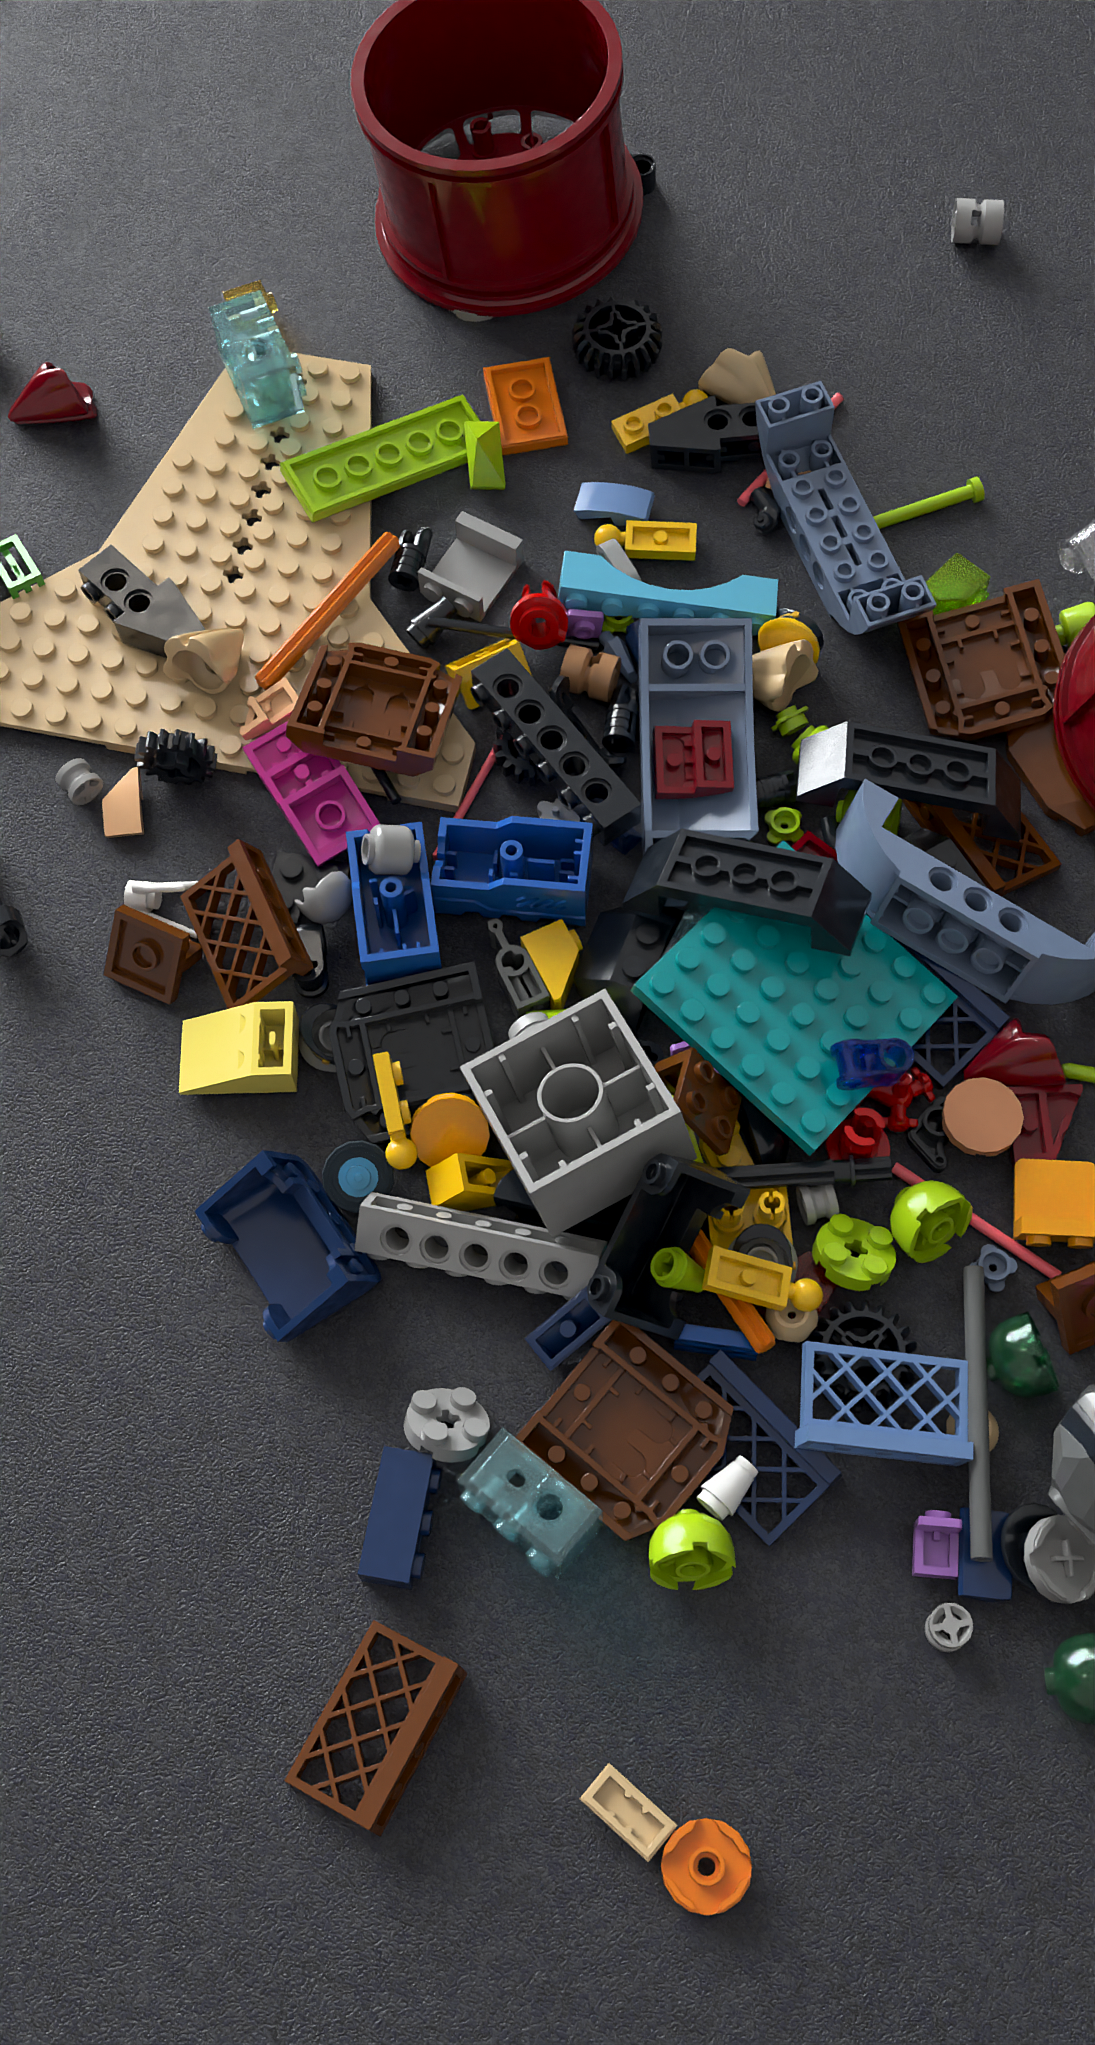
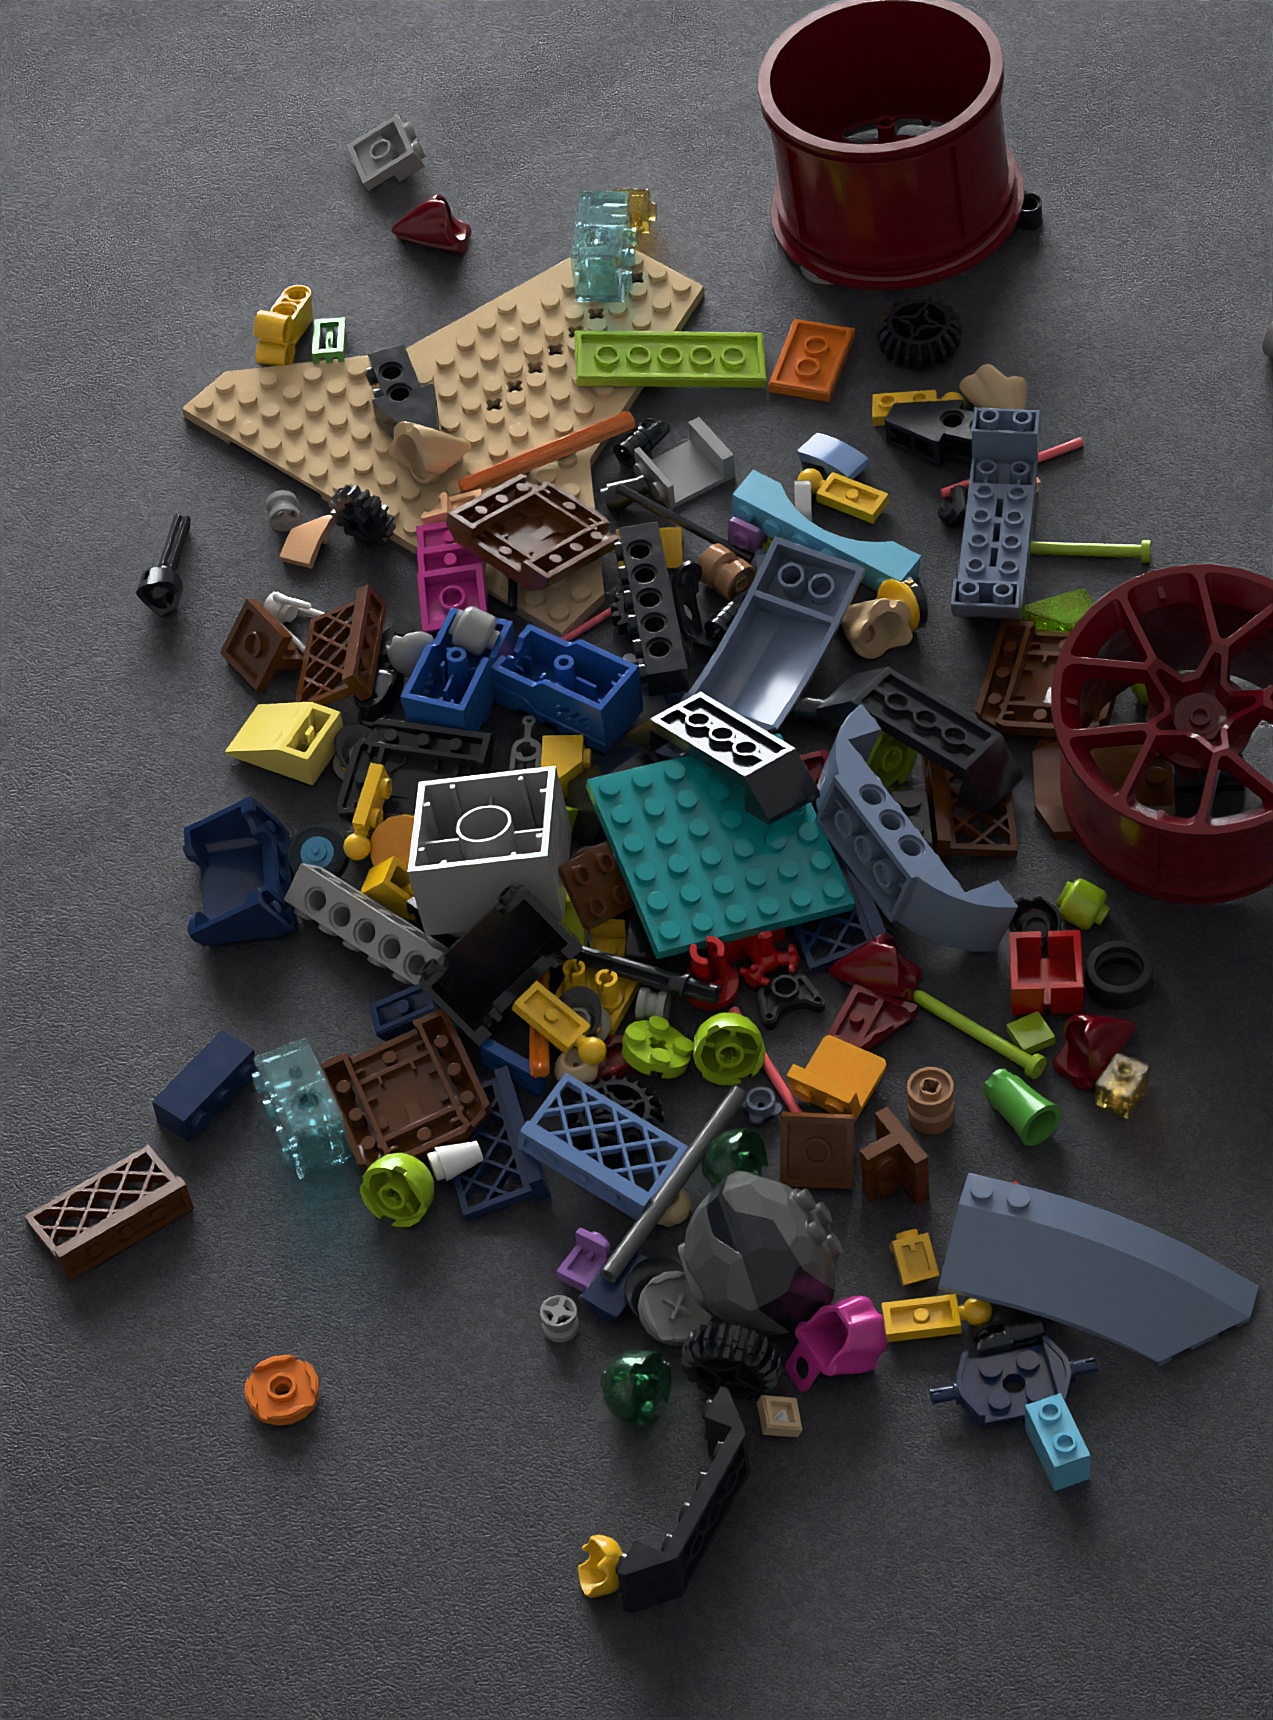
camera: 30 degrees right, 15 degrees down
(454, 1406) = (273, 1030): light grey plate -> none
(484, 455) = (750, 384): lime slope -> none
(539, 605) = (706, 516): red piece -> none
(628, 1812) = (248, 1333): tan plate -> none
(677, 1270) = (502, 992): lime cone -> none
(693, 760) = (761, 661): dark red slope -> none
(780, 817) = (810, 739): lime plate -> none
(790, 720) = (865, 662): lime plate -> none
(863, 1062) = (735, 906): clear blue piece -> none
(982, 1117) = (817, 993): nougat tile -> none

